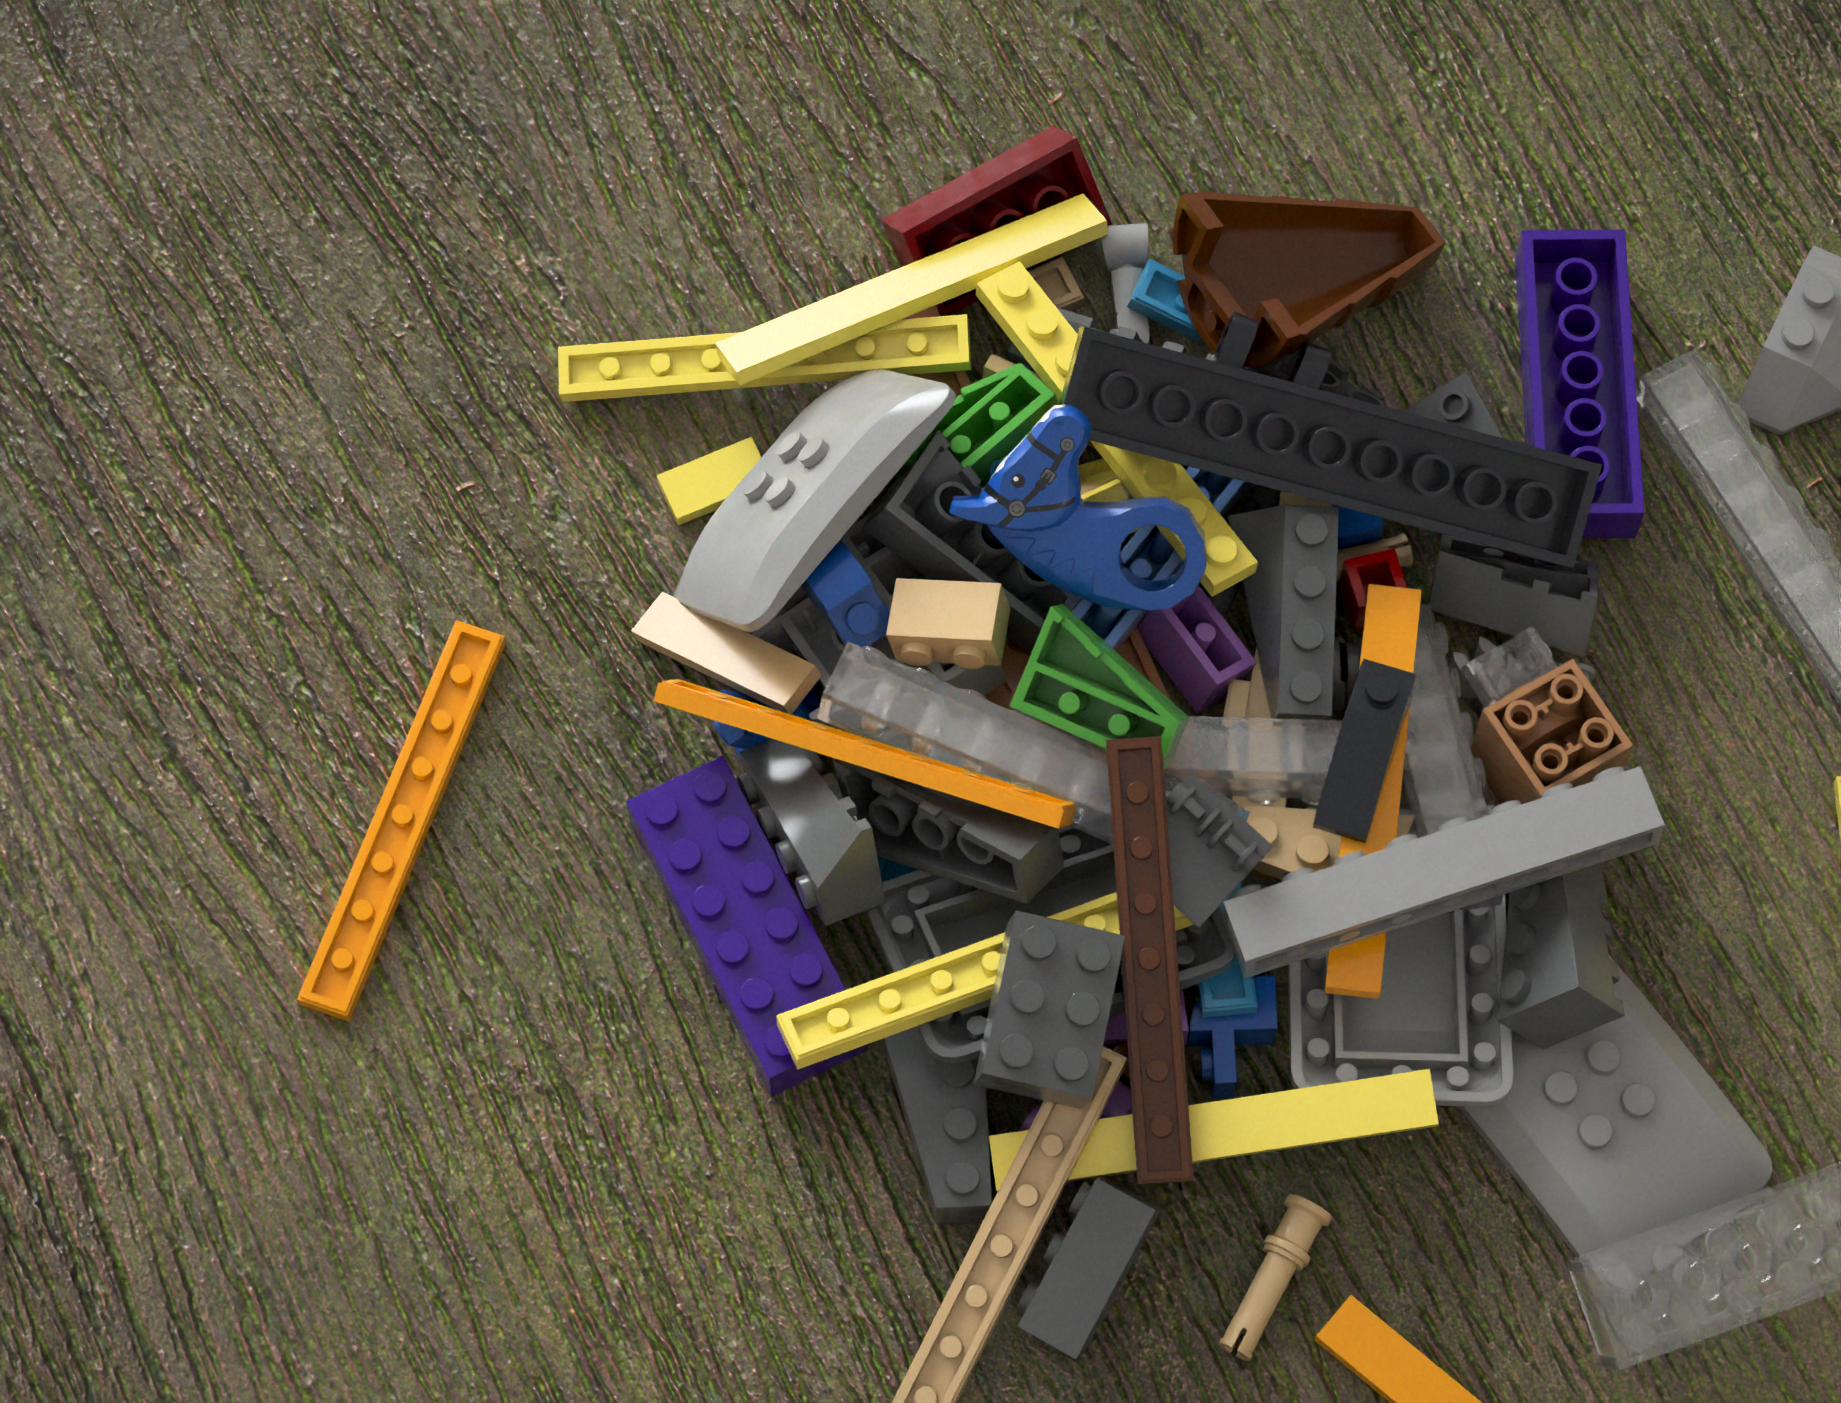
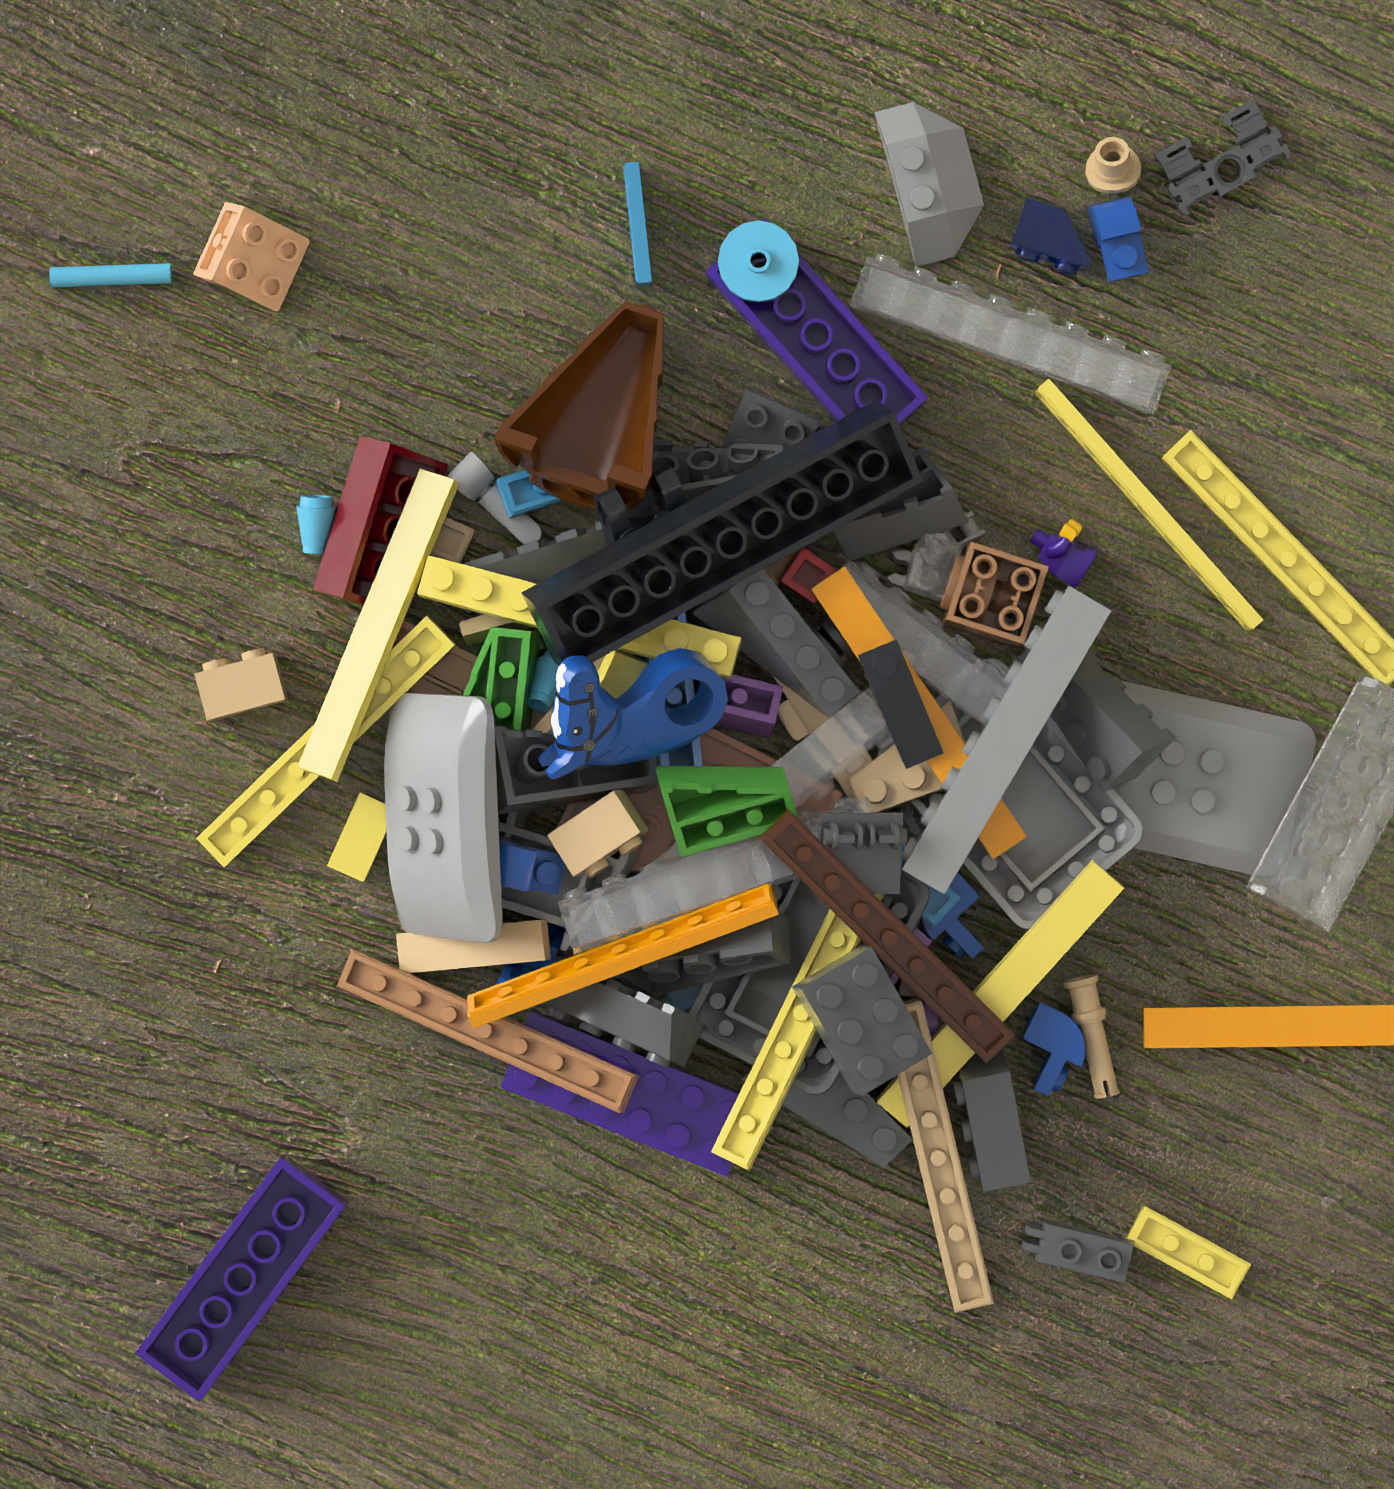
camera: 40 degrees left, 20 degrees up
(204, 772) = (241, 1277): none -> dark purple brick
(401, 821) = (373, 1197): light orange tile -> none
(666, 741) = (501, 1038): none -> medium nougat tile
(731, 252) = (240, 685): none -> tan brick
(939, 166) = (315, 522): none -> medium azure cone
(1234, 1251) = (1058, 1036): none -> blue brick
(1490, 158) = (637, 224): none -> dark azure tile
(1577, 279) = (752, 282): none -> medium azure plate
(1667, 786) = (1064, 554): none -> dark purple piece
(1783, 811) = (1148, 505): none -> light yellow tile

